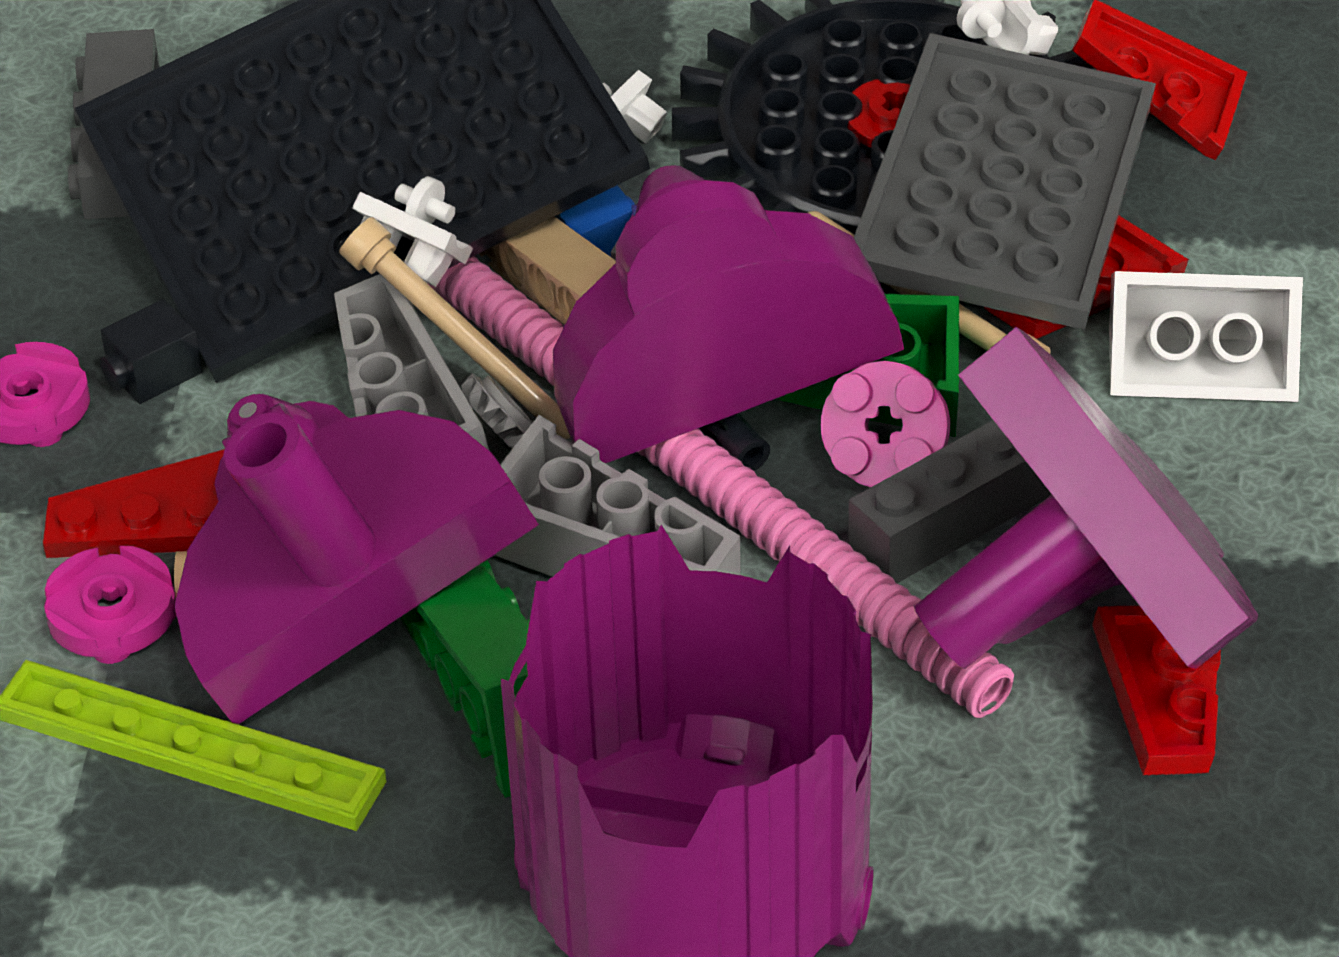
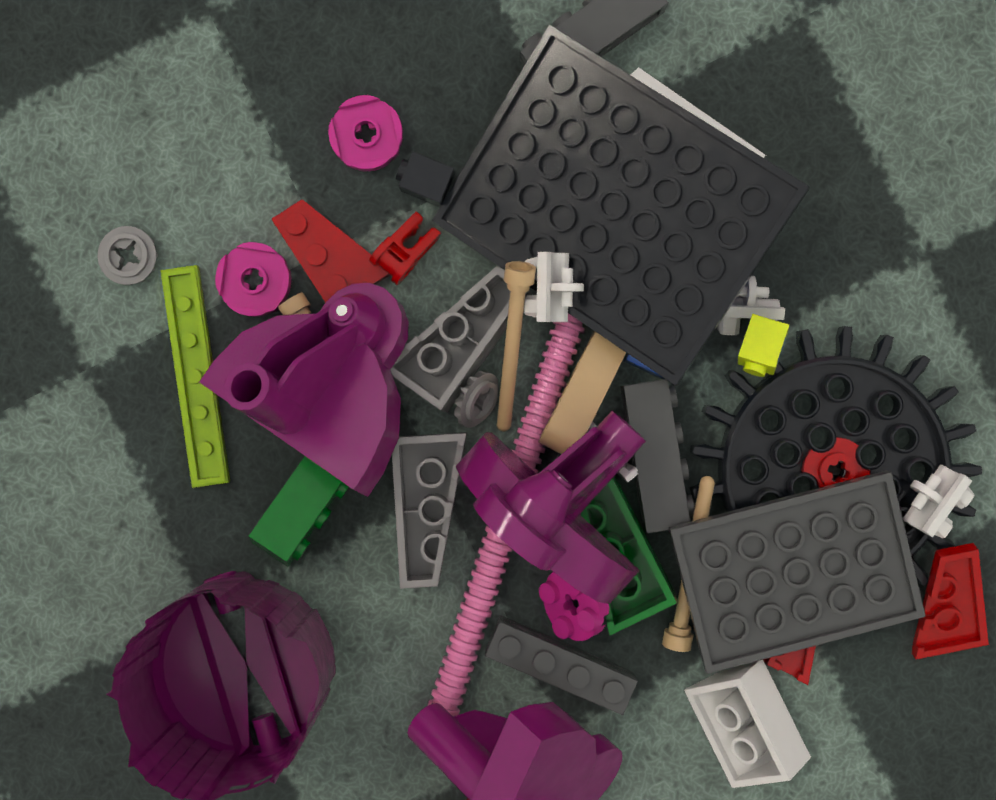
camera: 55 degrees right, 45 degrees up
(212, 407) = (396, 258): none -> red piece
(666, 92) = (762, 345): none -> neon yellow brick

